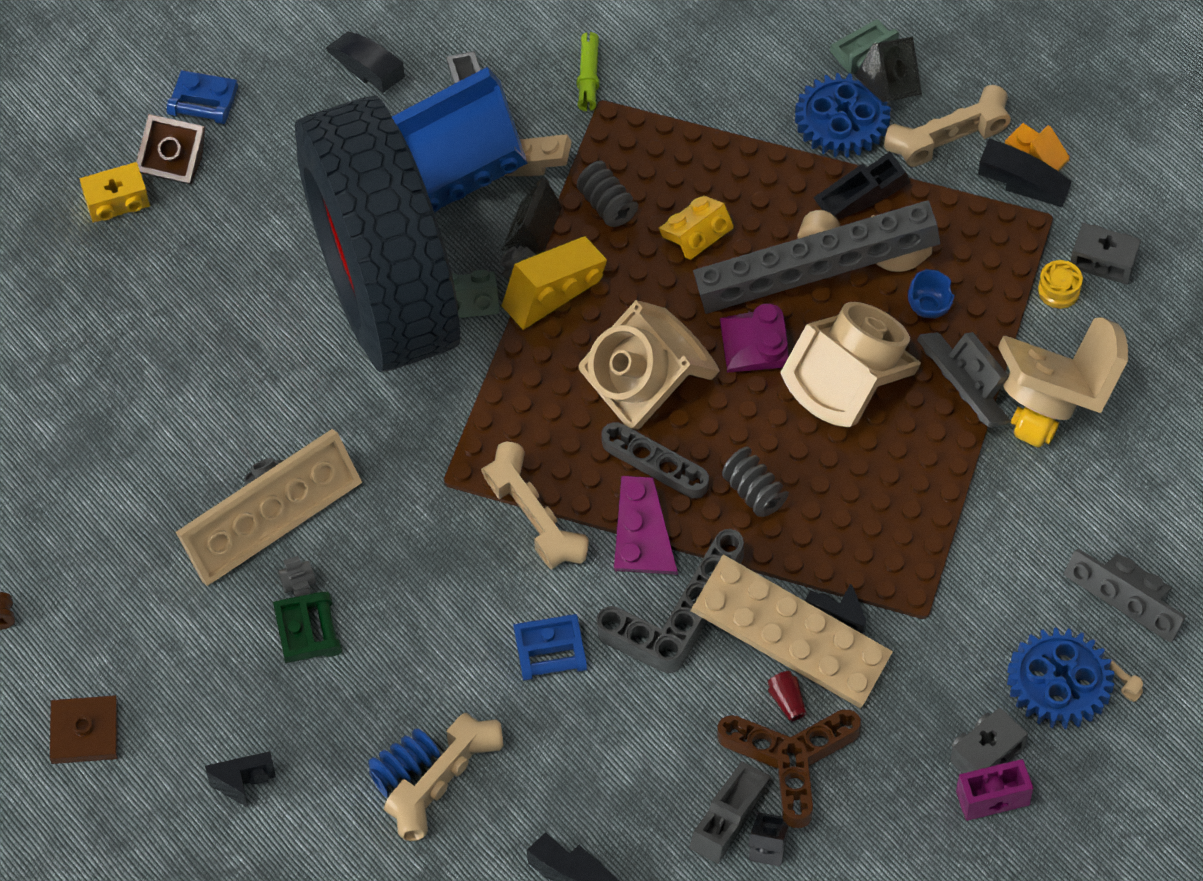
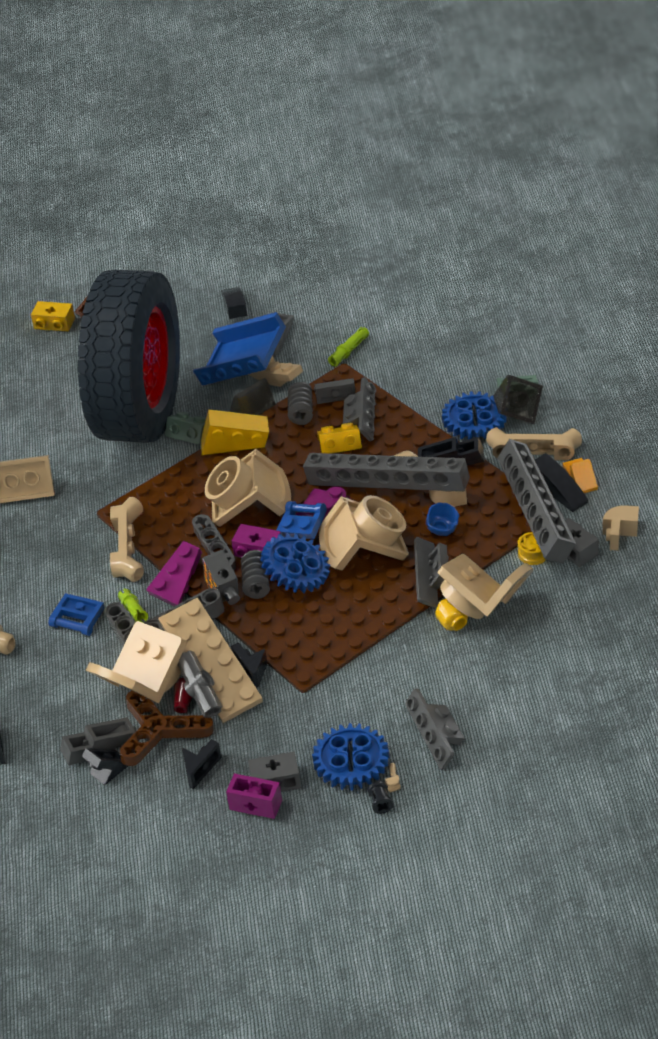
camera: 35 degrees right, 15 degrees down
(631, 603) = (132, 605): none -> lime pin
(633, 152) = (334, 390): none -> dark grey panel
(690, 172) = (360, 409): none -> dark grey bracket
(716, 434) = (251, 538): none -> magenta brick
(720, 507) = (226, 581): none -> dark grey torso
(725, 677) = (145, 662): none -> tan piece
(754, 384) = (302, 525): none -> blue plate
(796, 442) = (295, 563): none -> blue gear
(814, 674) = (199, 684): none -> dark grey piece
(883, 783) = (200, 764): none -> black slope
(1047, 217) = (536, 502): none -> dark grey brick
(1135, 715) = (381, 801): none -> black bush
(1139, 202) = (620, 522): none -> tan brick

